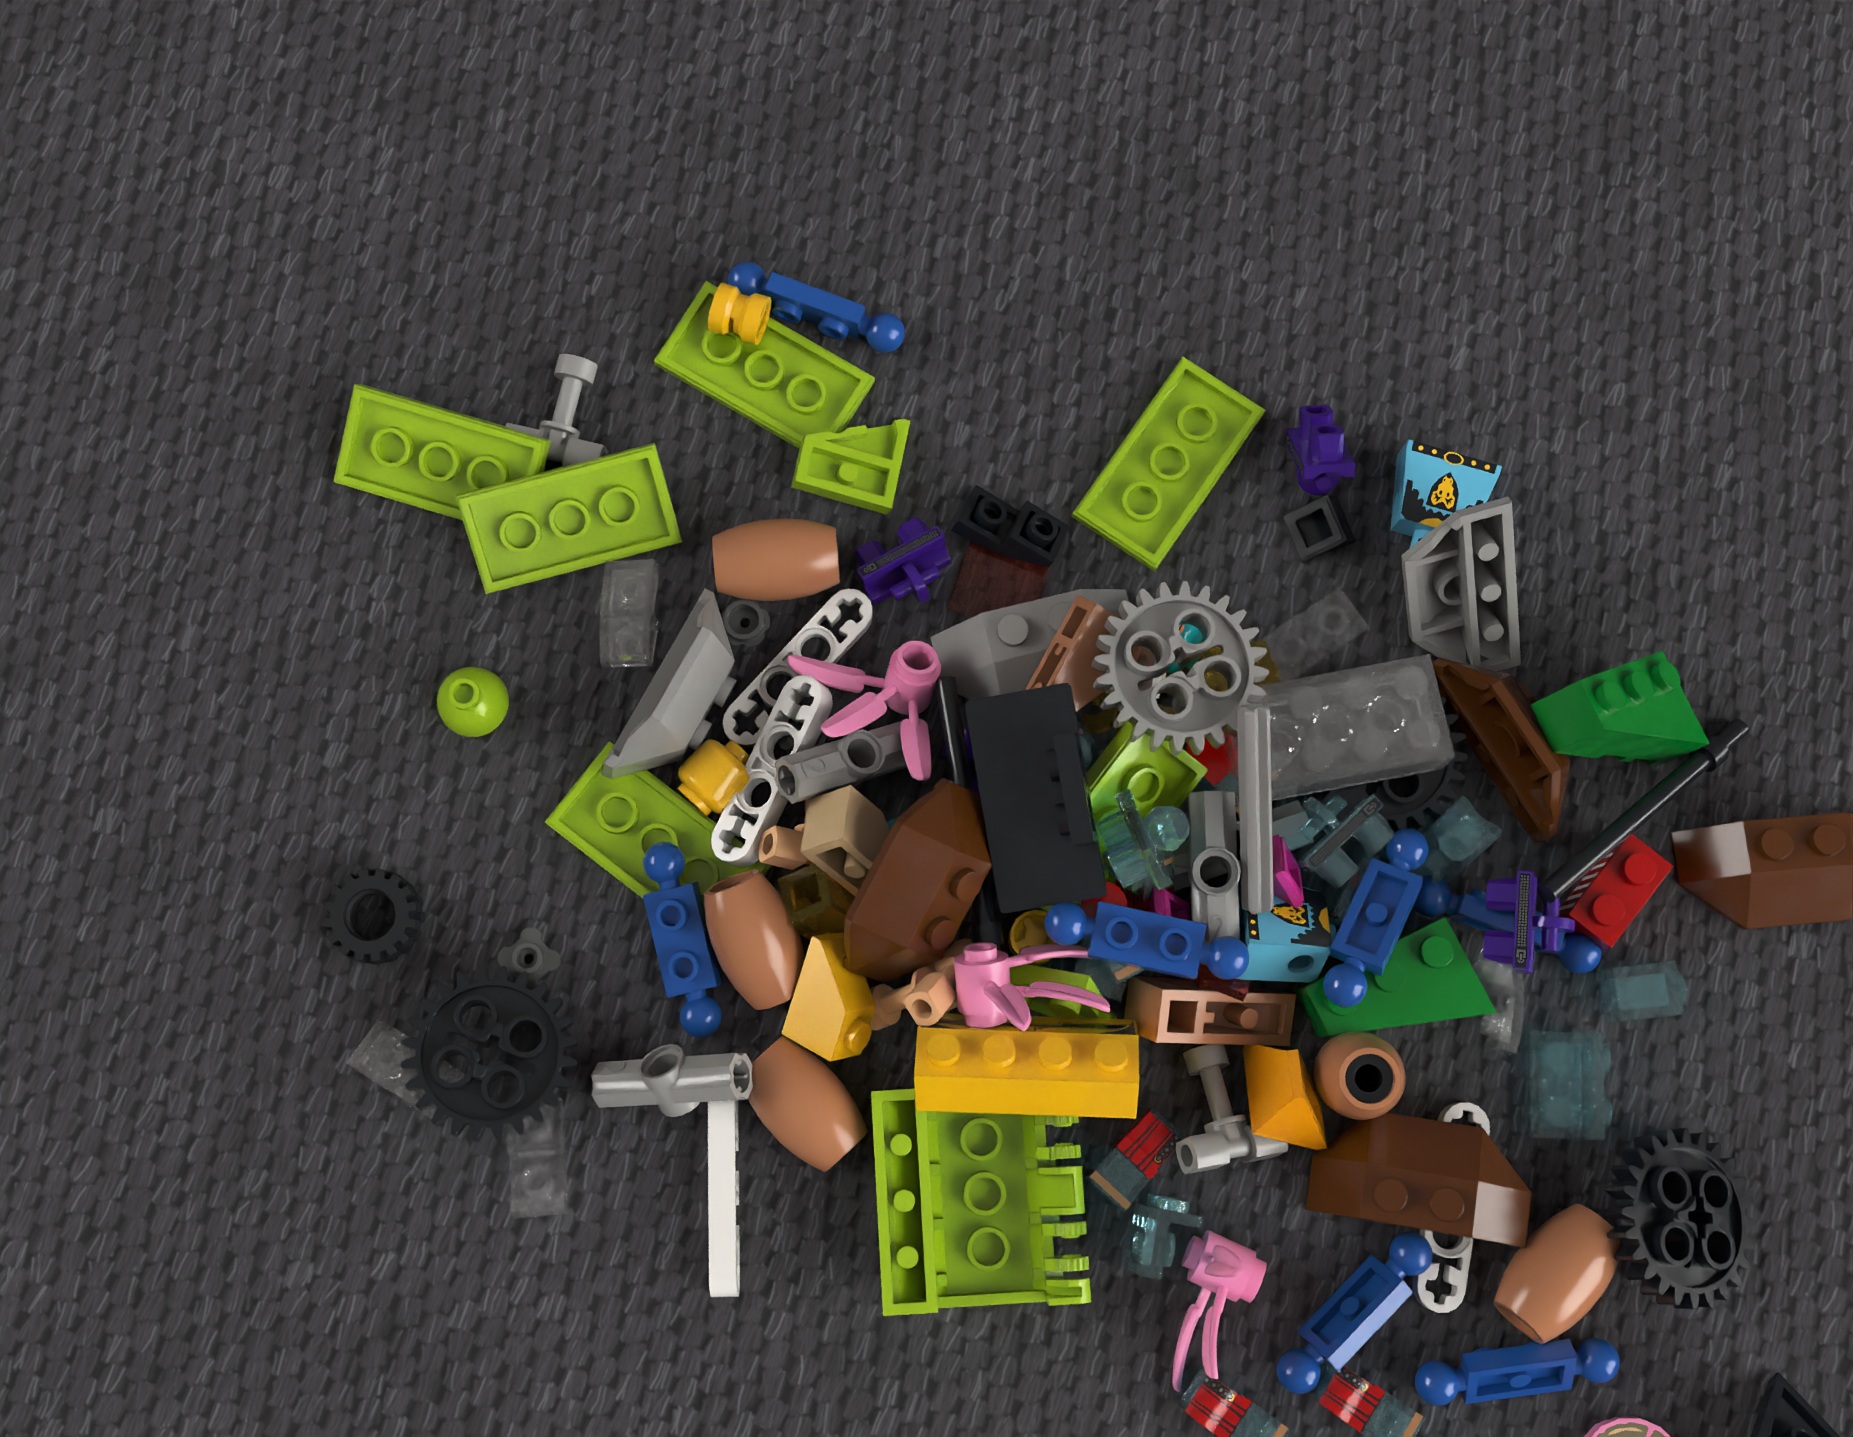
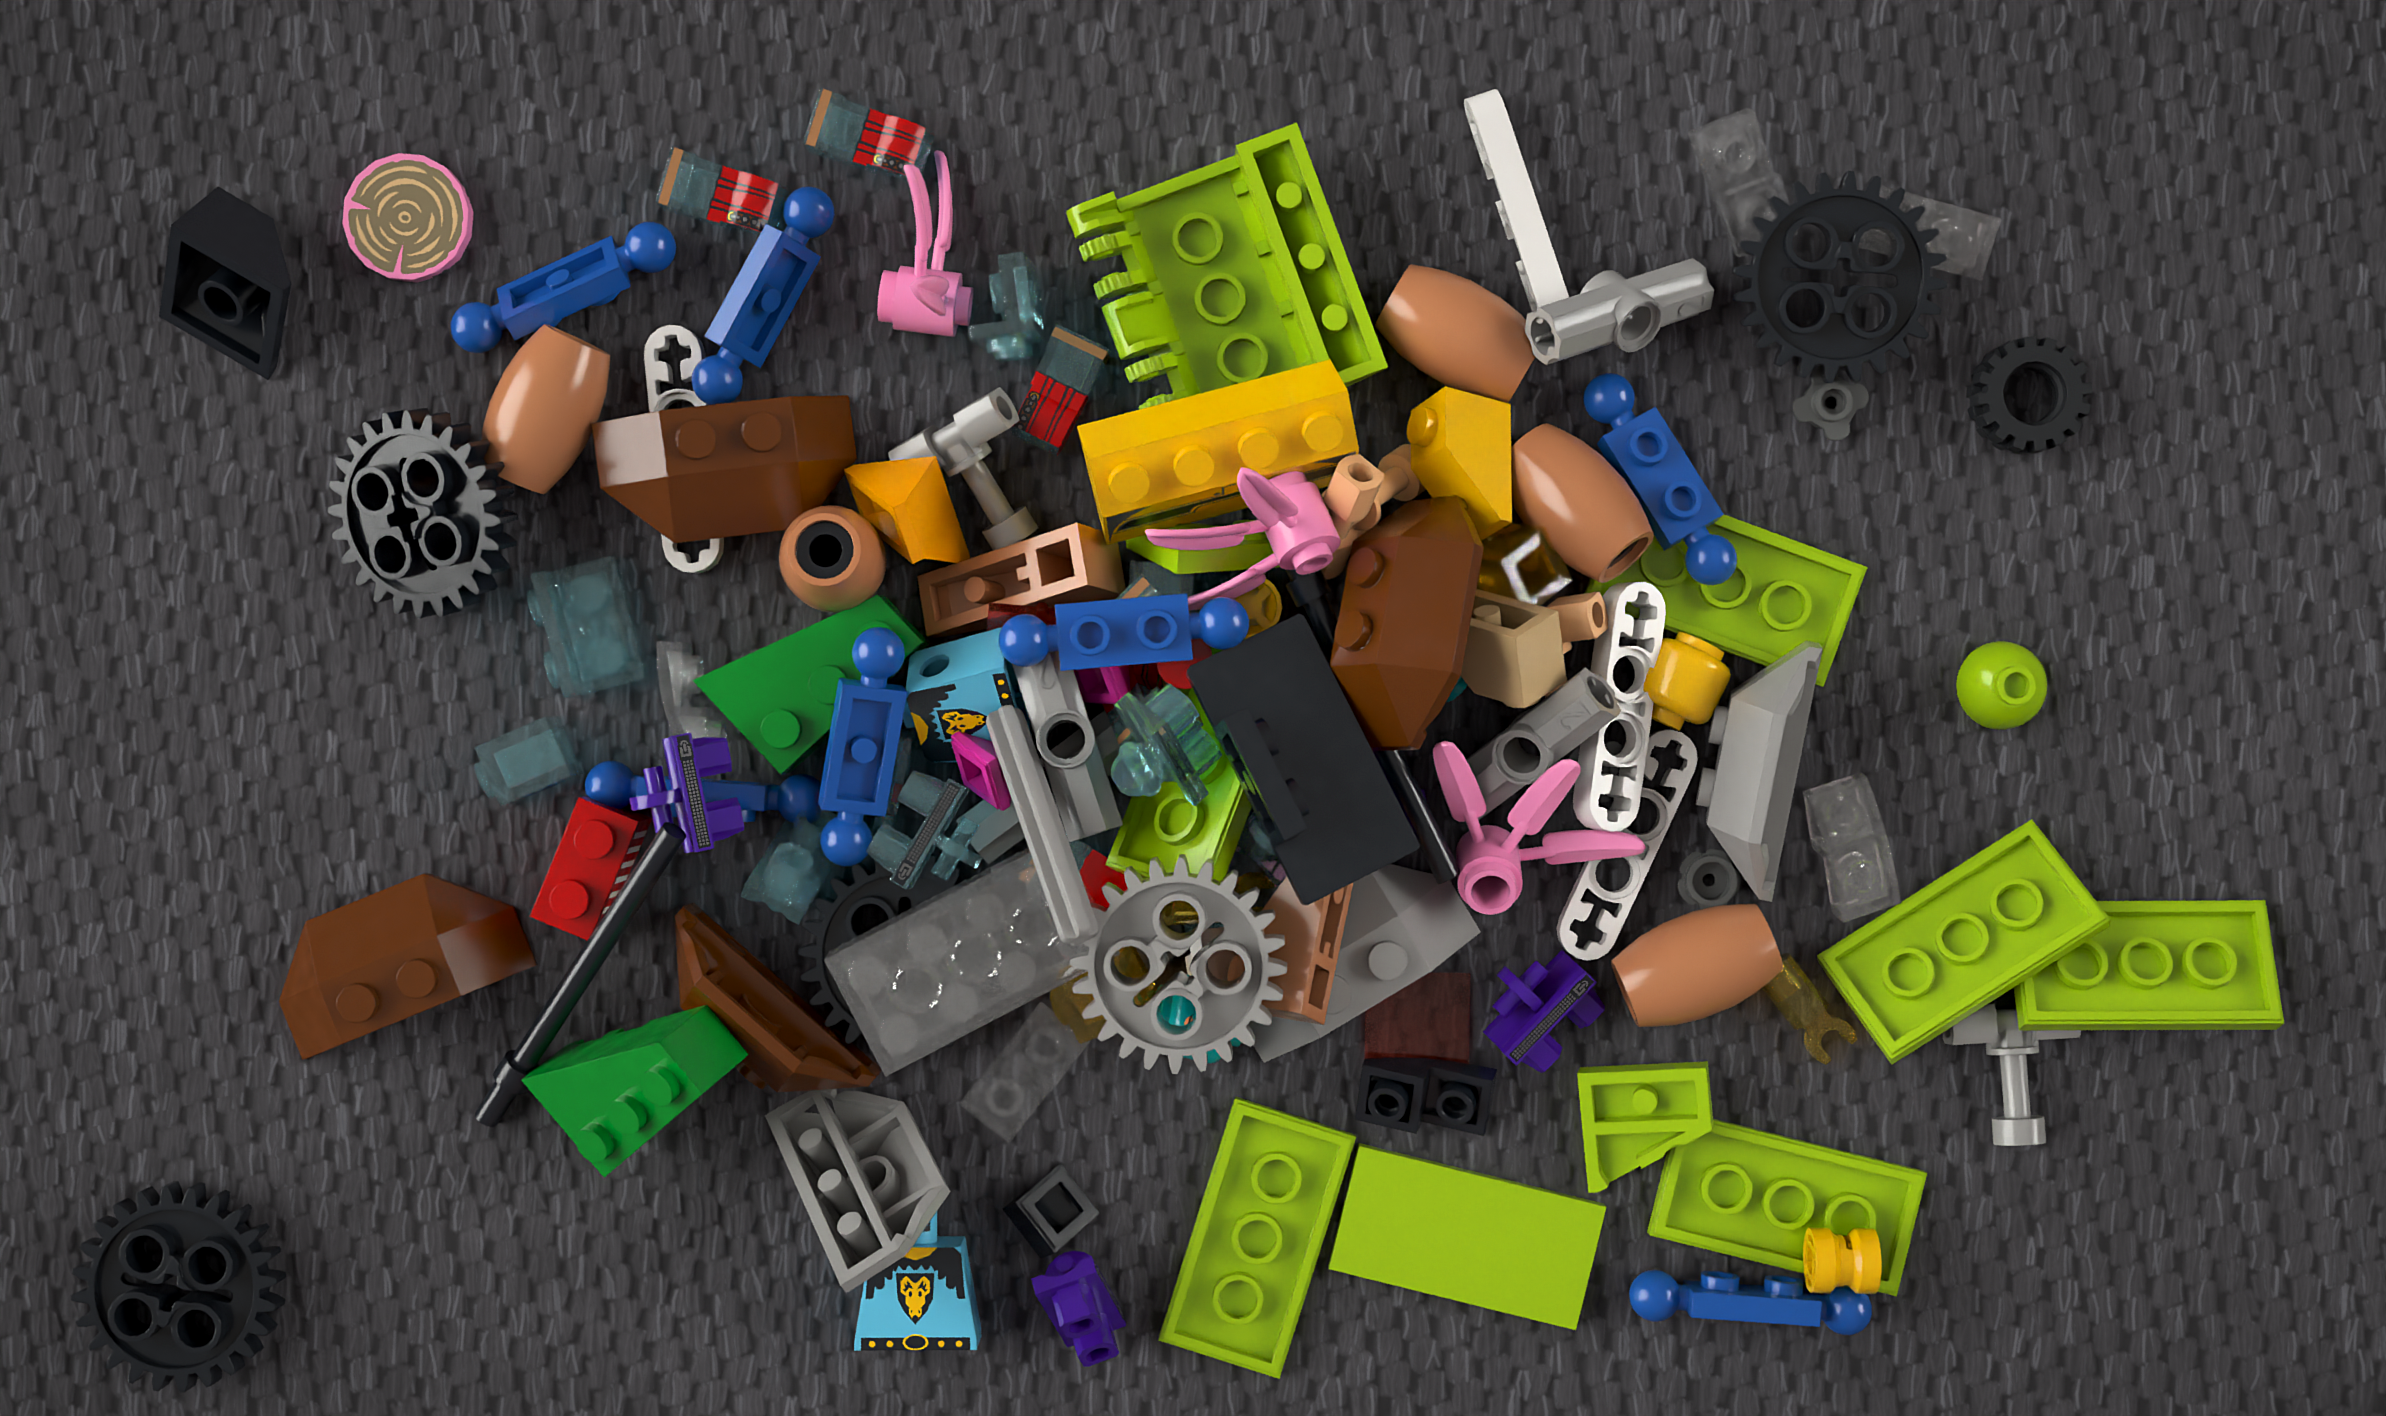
camera: 165 degrees right, 10 degrees up
(703, 506) = (1805, 1007): none -> clear yellow bar
(1011, 417) = (1467, 1236): none -> lime tile

